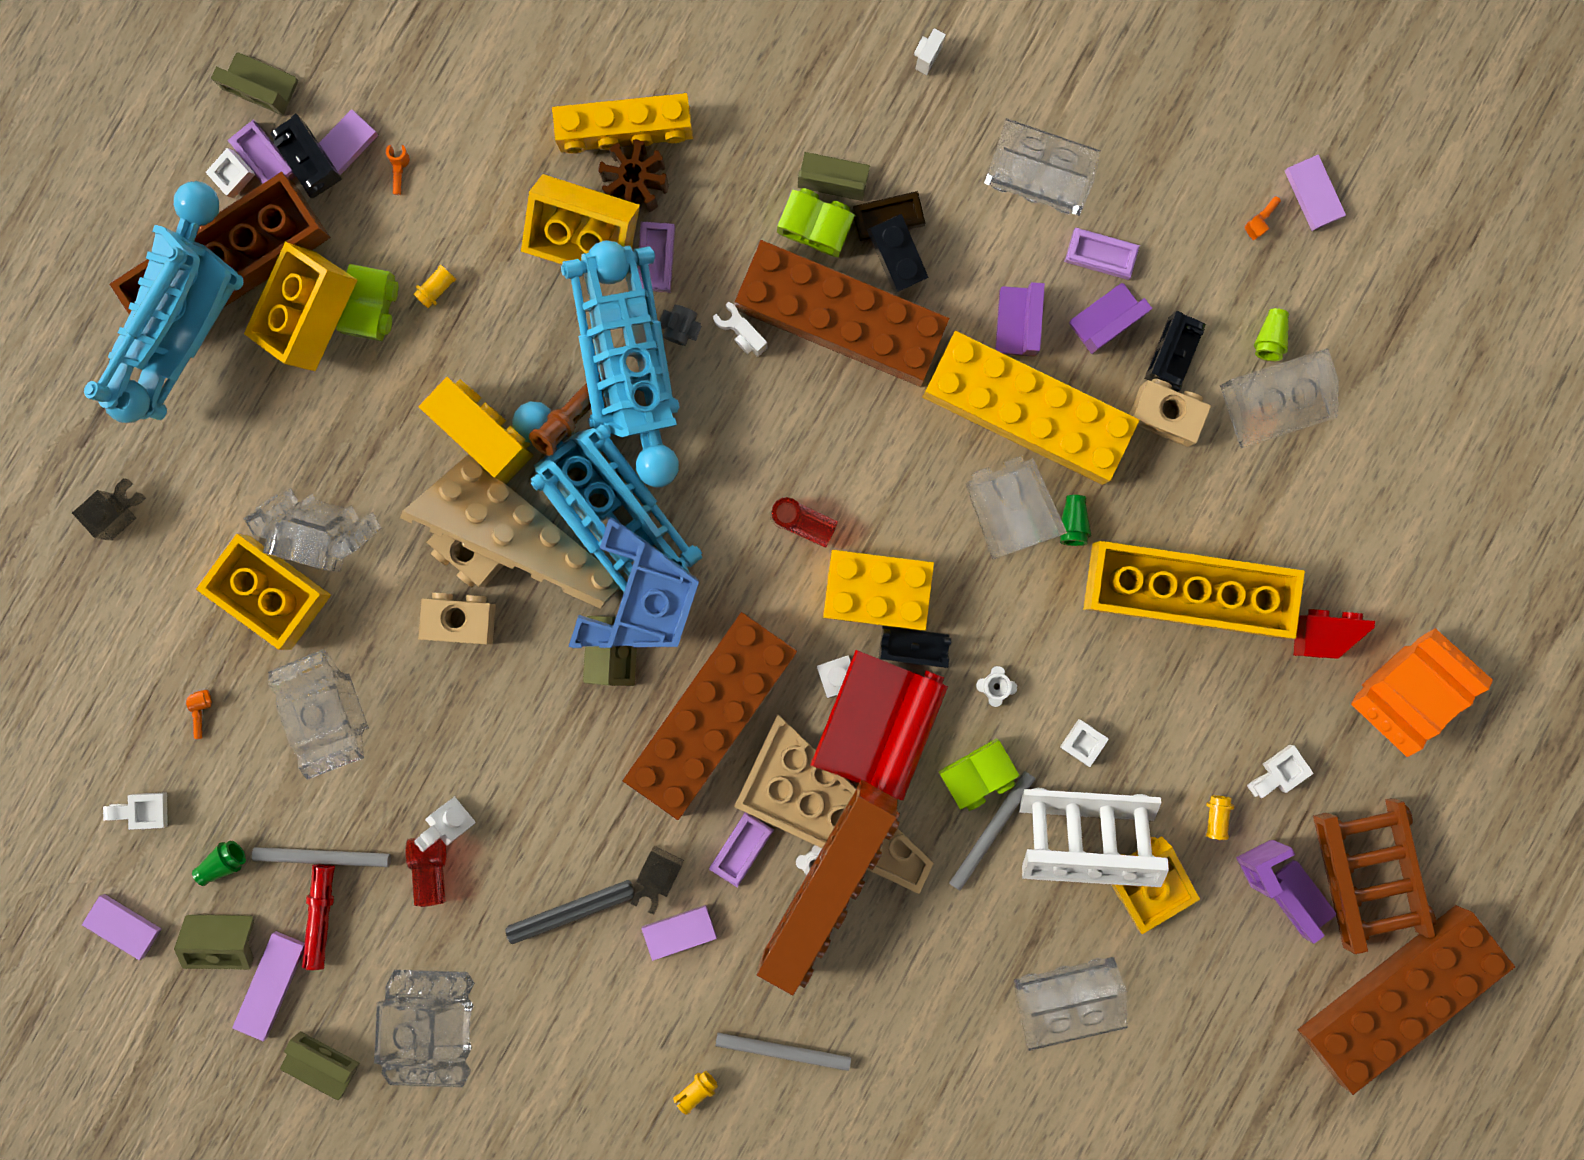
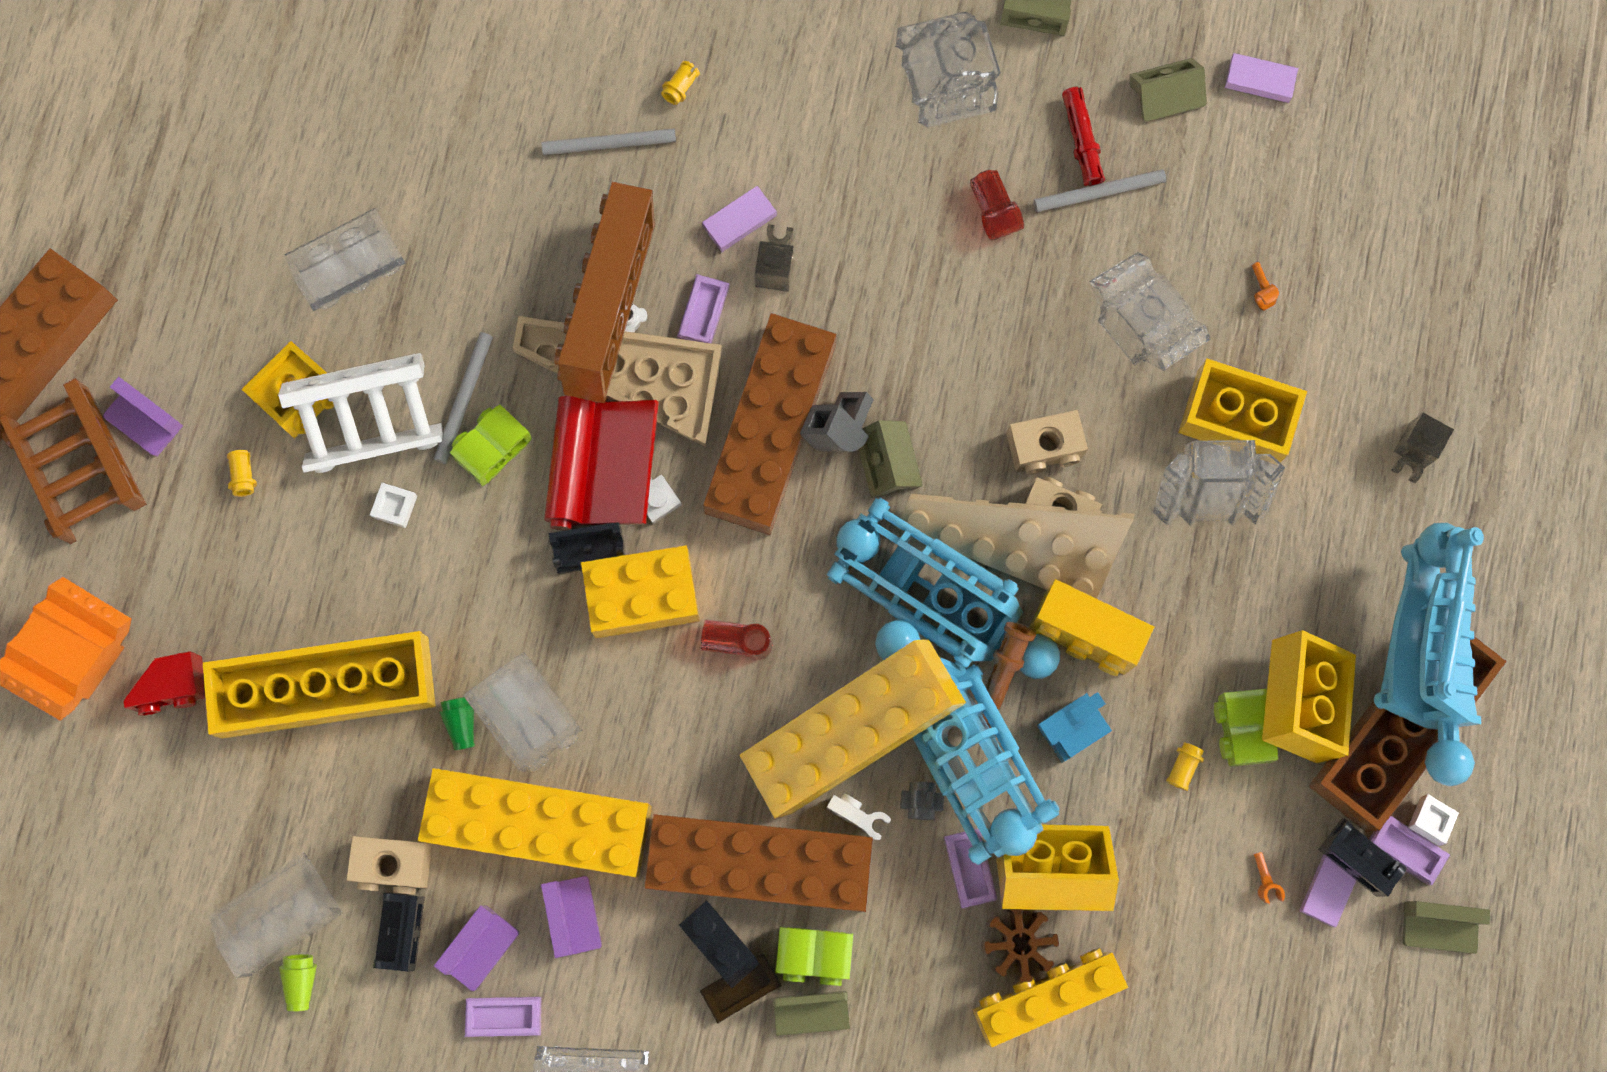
camera: 165 degrees right, 10 degrees down
(142, 811) = (1282, 183): white plate -> none
(221, 862) = (1189, 159): green cone -> none
(269, 986) = (1106, 65): lavender tile -> none
(446, 823) = (991, 251): white plate -> none
(521, 350) = (1075, 726): none -> dark azure piece
(570, 912) = (848, 208): dark grey axle -> none
(646, 690) = (838, 425): none -> dark grey brick
(653, 600) = (859, 509): medium blue wing -> none
(721, 397) = (852, 728): none -> yellow brick
(1006, 686) = (485, 536): white plate -> none
(1258, 863) = (187, 441): medium lavender panel -> none
(1284, 771) = (185, 536): white plate -> none

